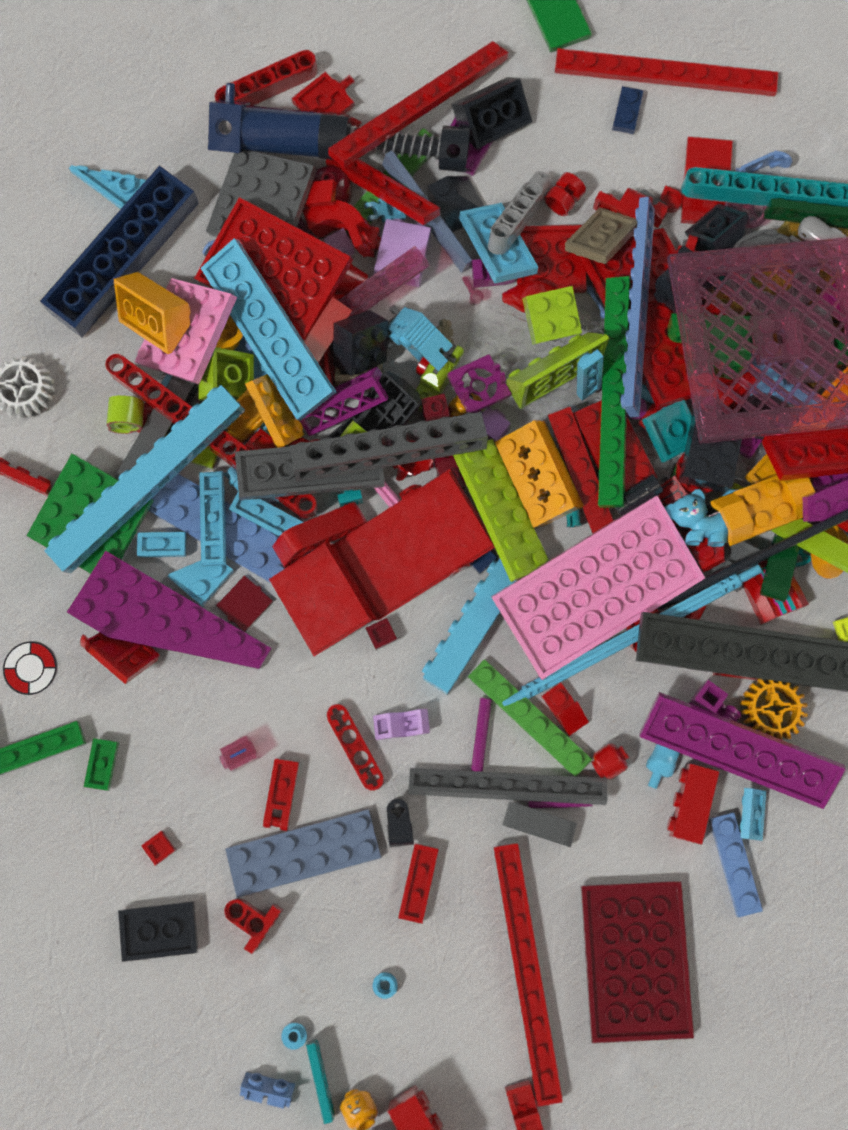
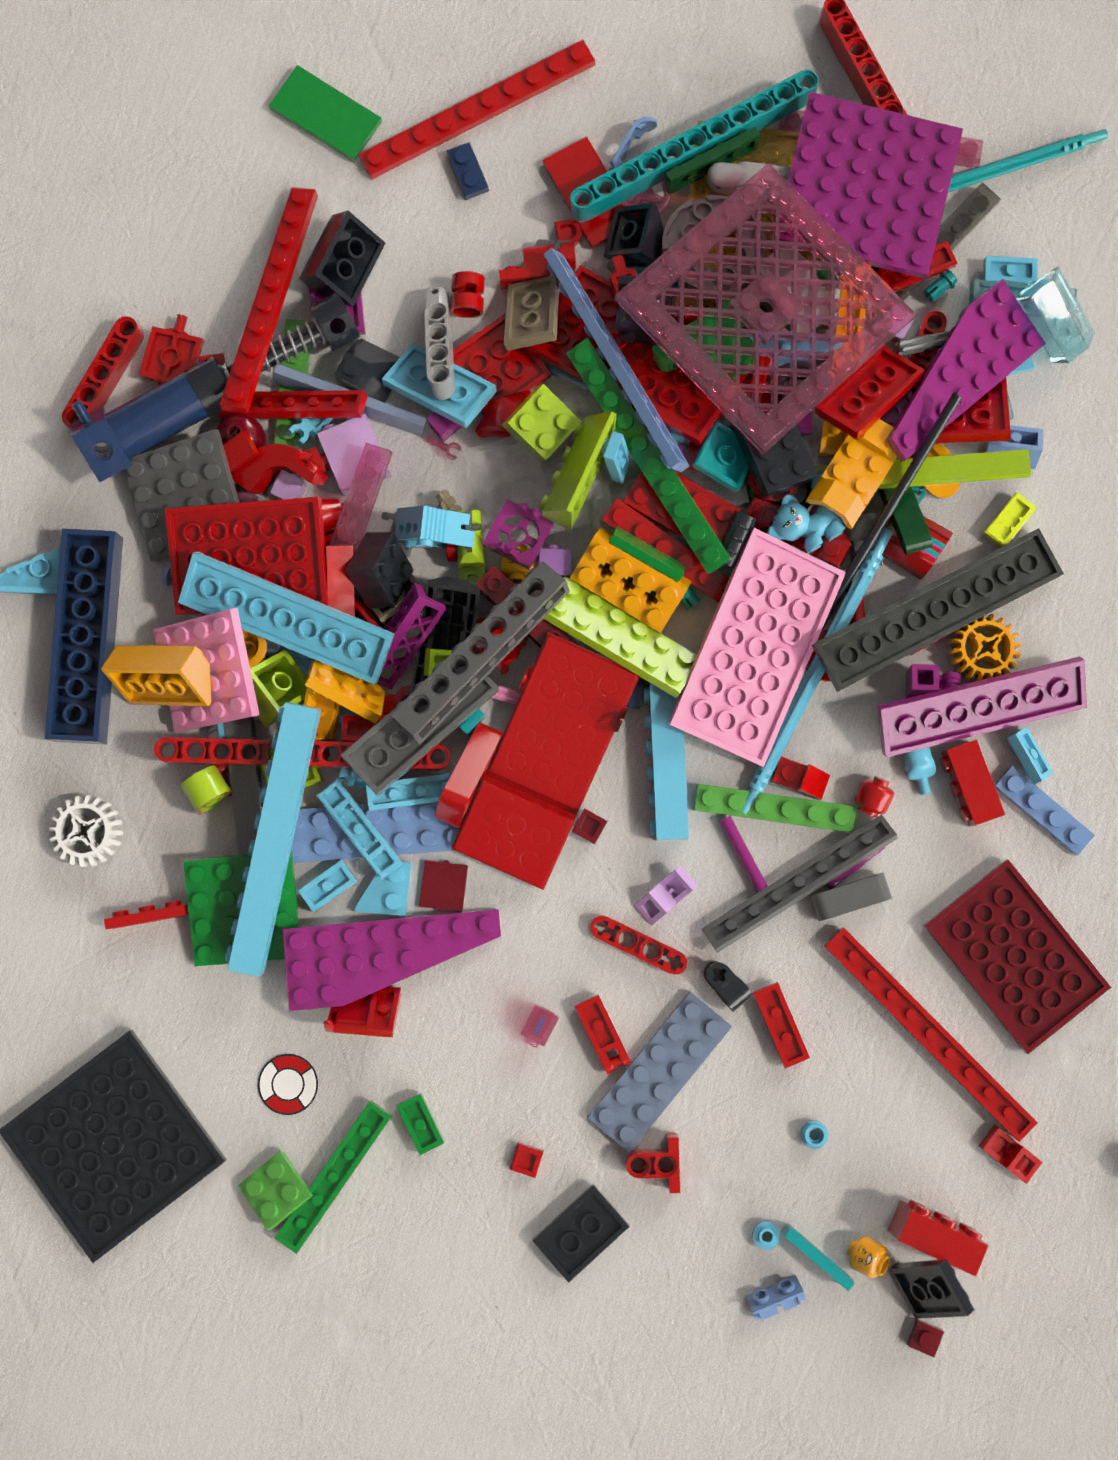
camera: 35 degrees left, 5 degrees up
(563, 461) = (647, 554): none -> green tile

